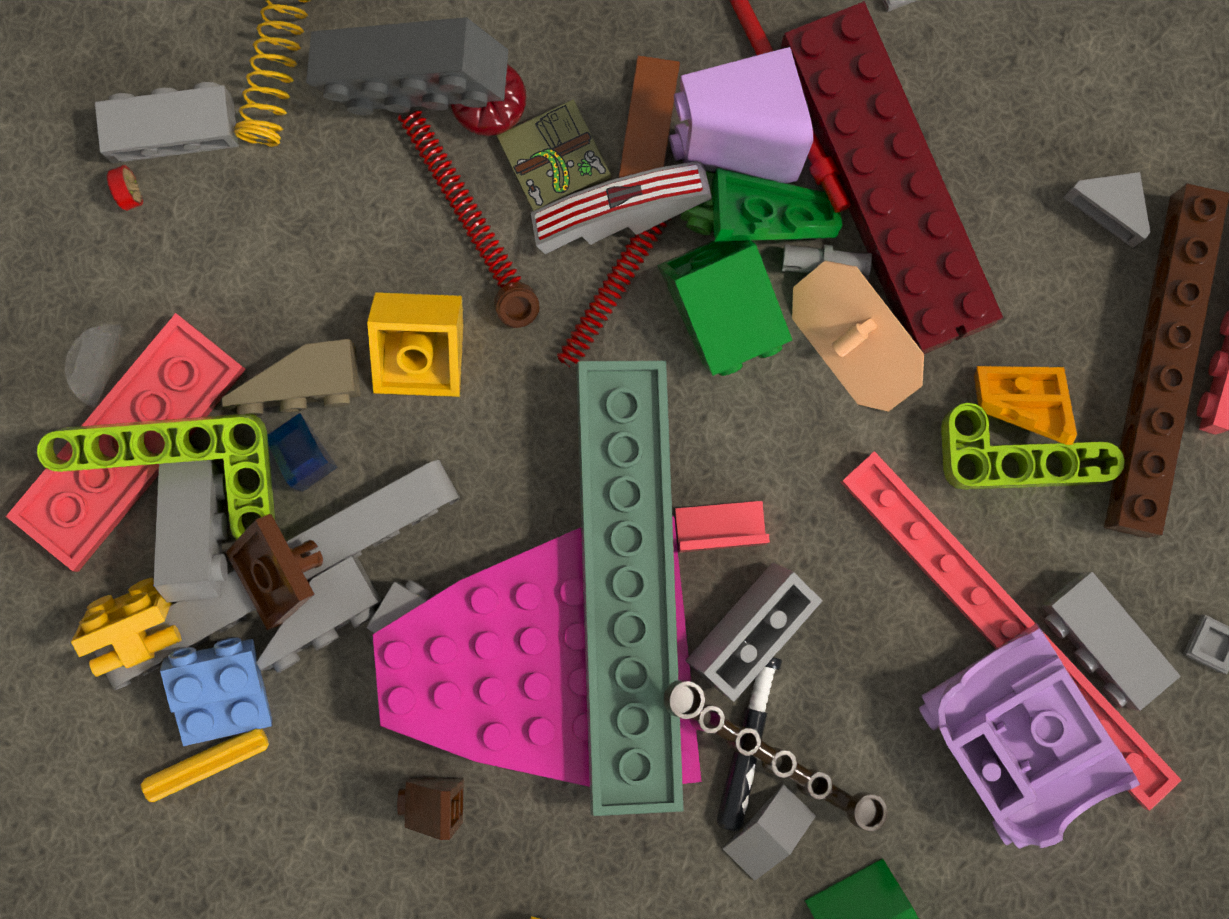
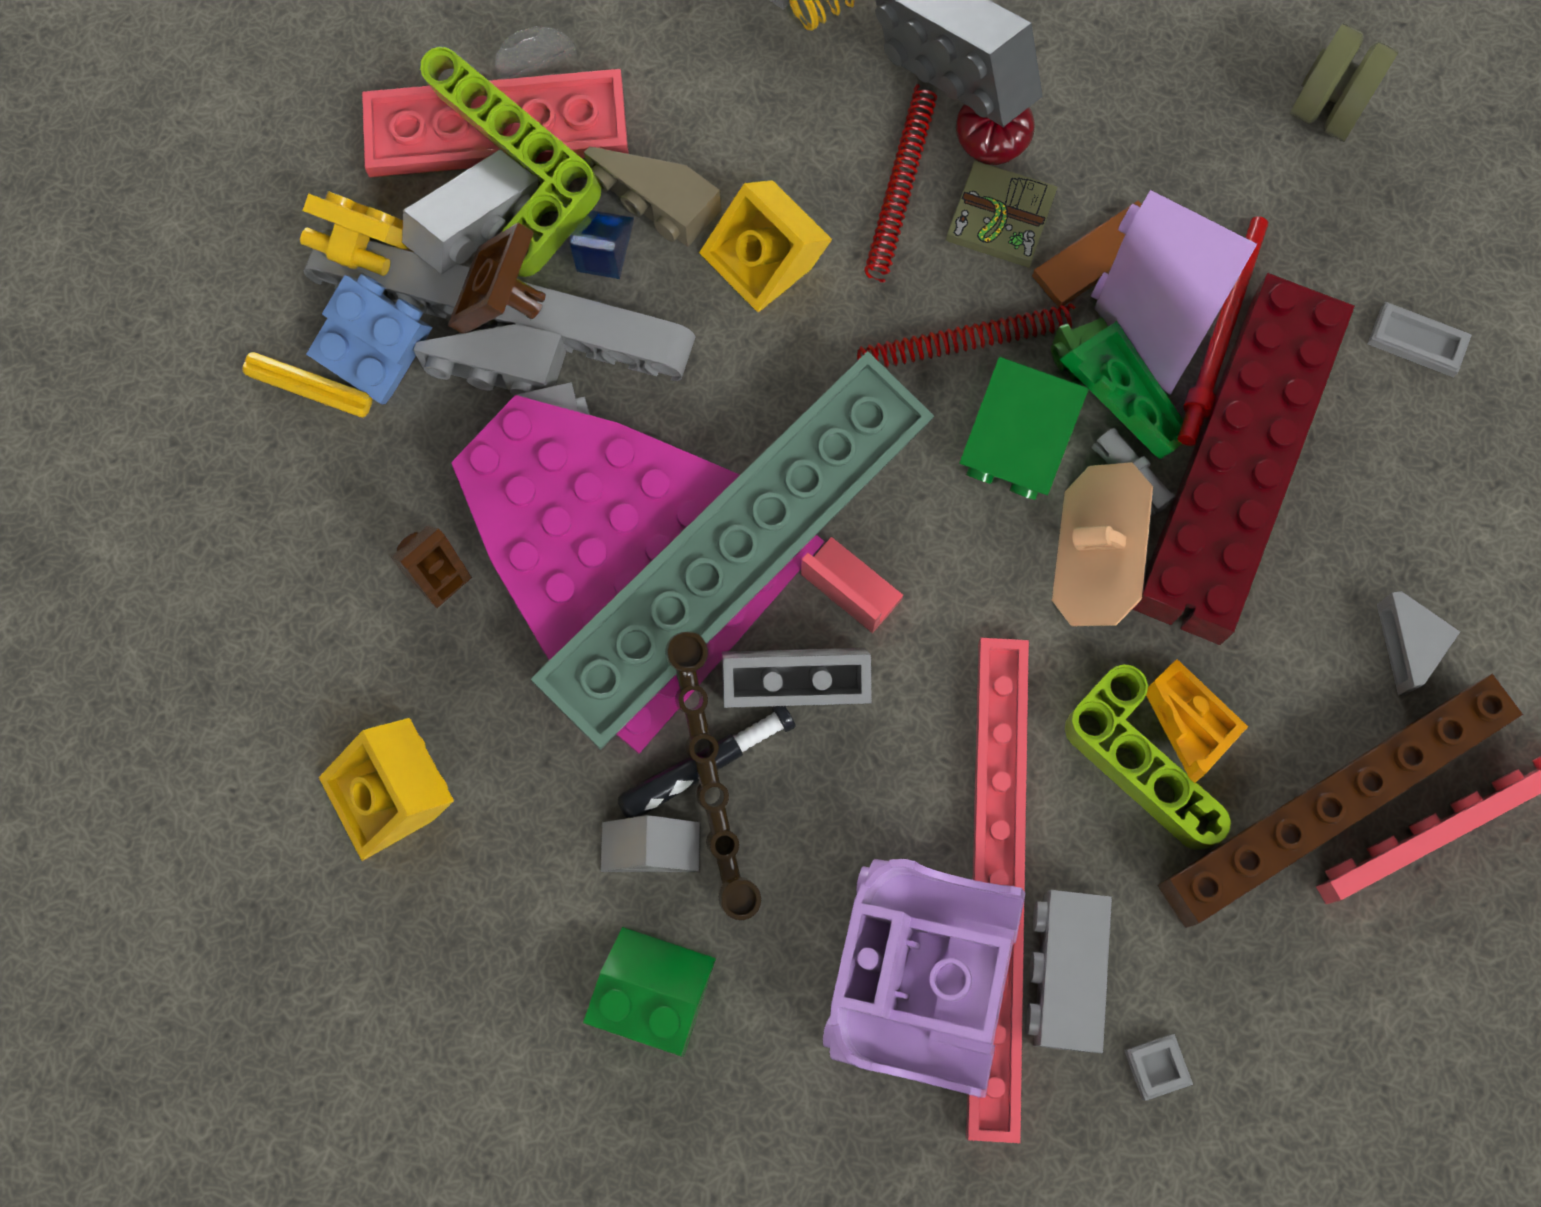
camera: 45 degrees right, 10 degrees down
(516, 304) = (866, 285): reddish brown tile -> none
(628, 201) = (1027, 288): slope -> none

